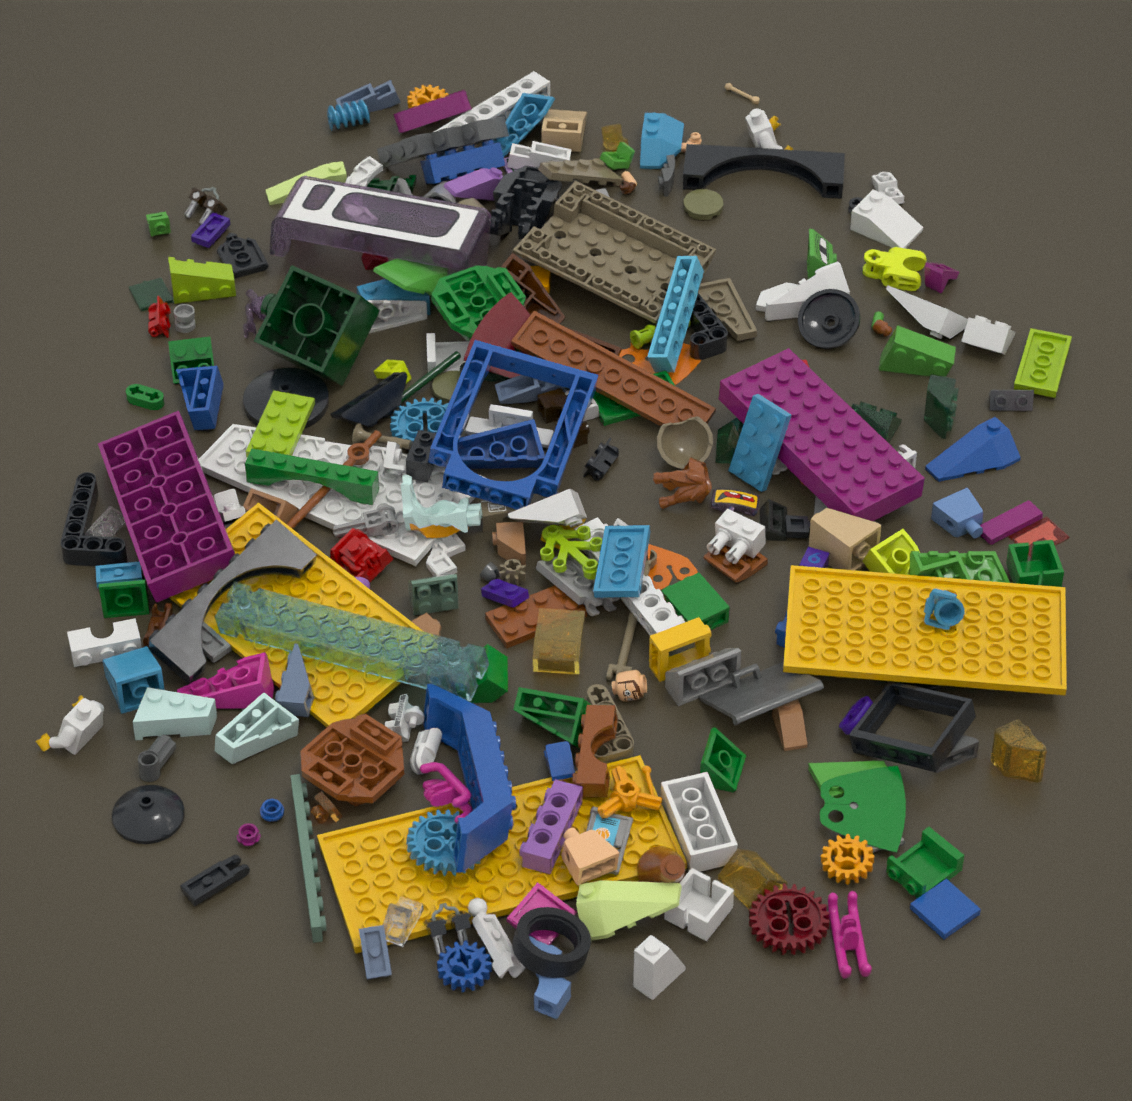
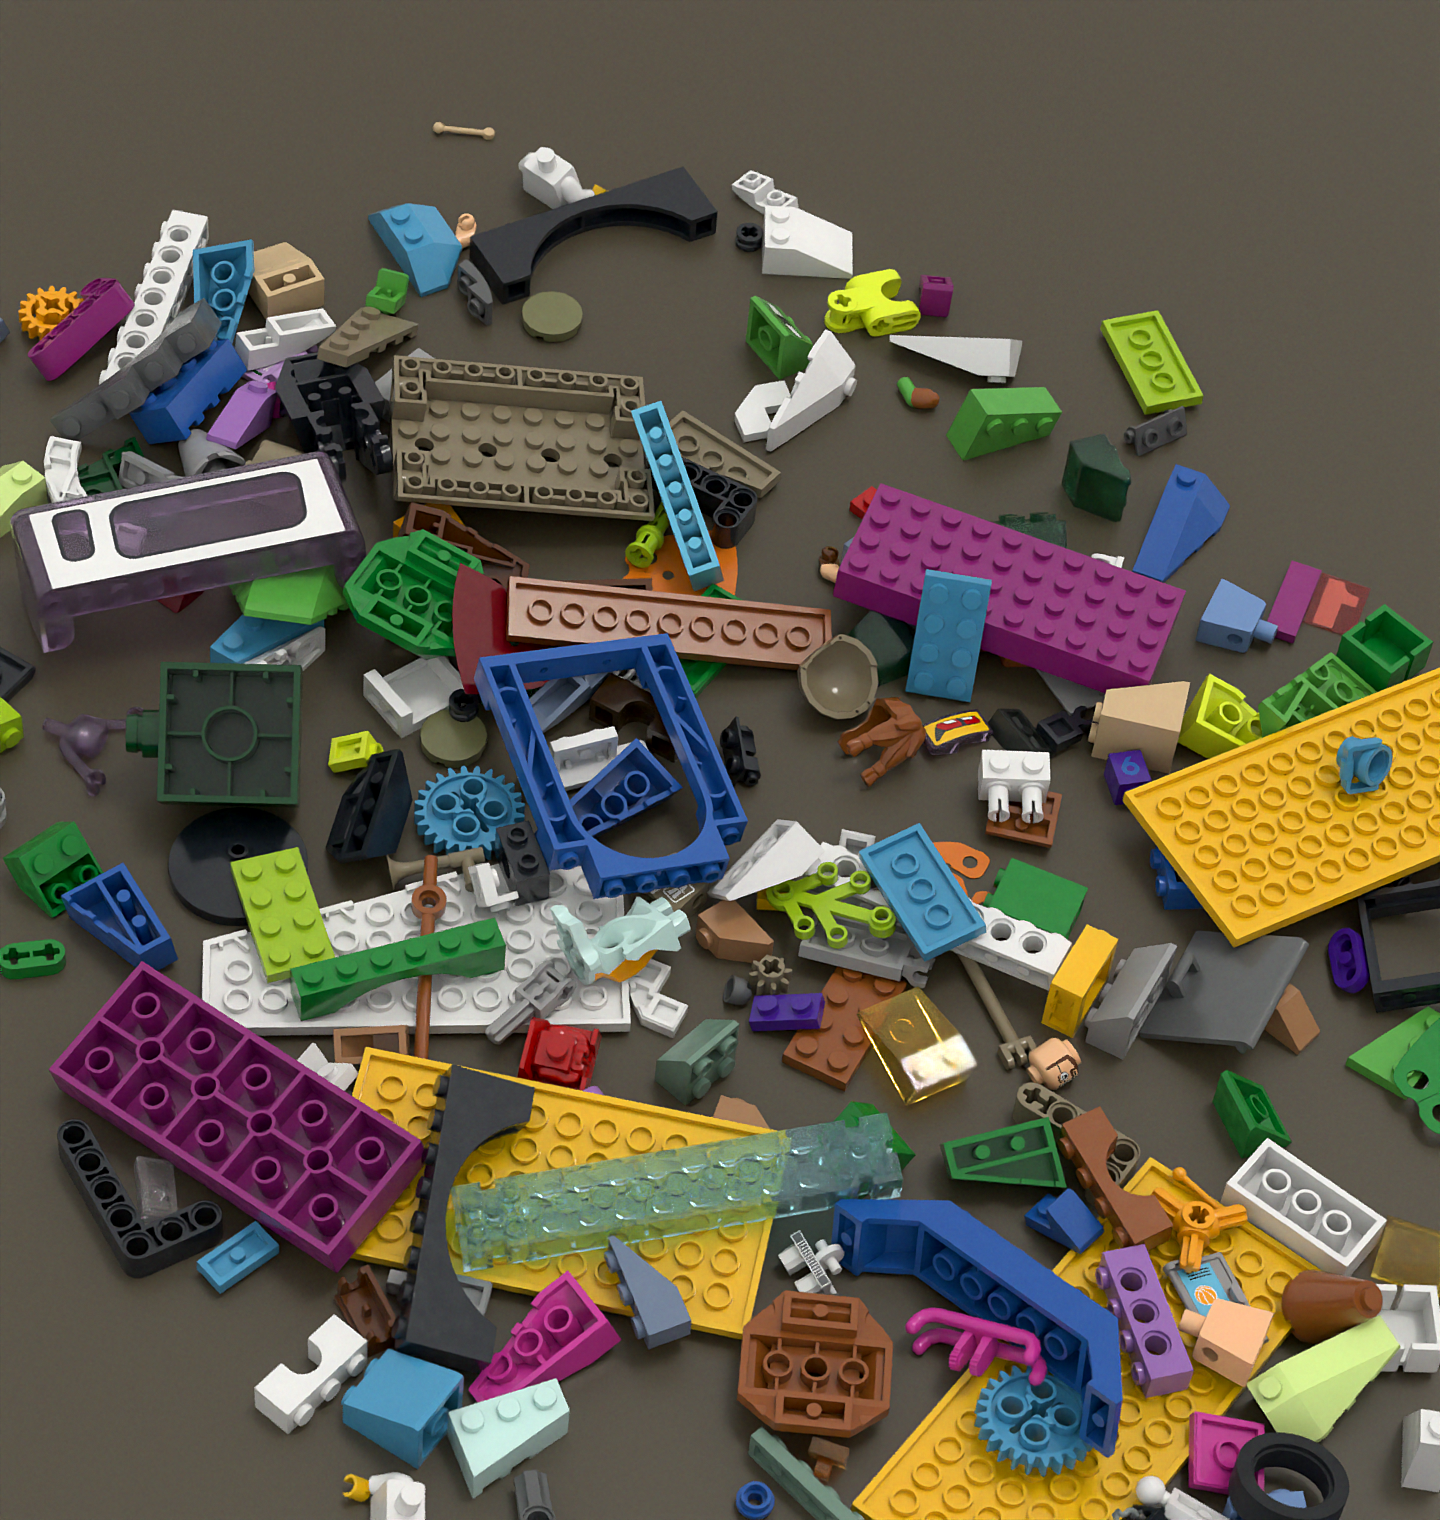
camera: 40 degrees left, 5 degrees up
(124, 598) = (290, 1285): green slope -> none
(255, 730) = (639, 1388): light aqua wedge -> none
(425, 748) = (880, 1297): white arm -> none
(430, 375) = (418, 723): dark green bar -> none
(612, 136) = (355, 268): clear yellow bracket -> none
(630, 183) = (432, 326): arm -> none
(824, 308) = (870, 397): black dish -> none
(988, 336) = (1061, 354): white slope -> none

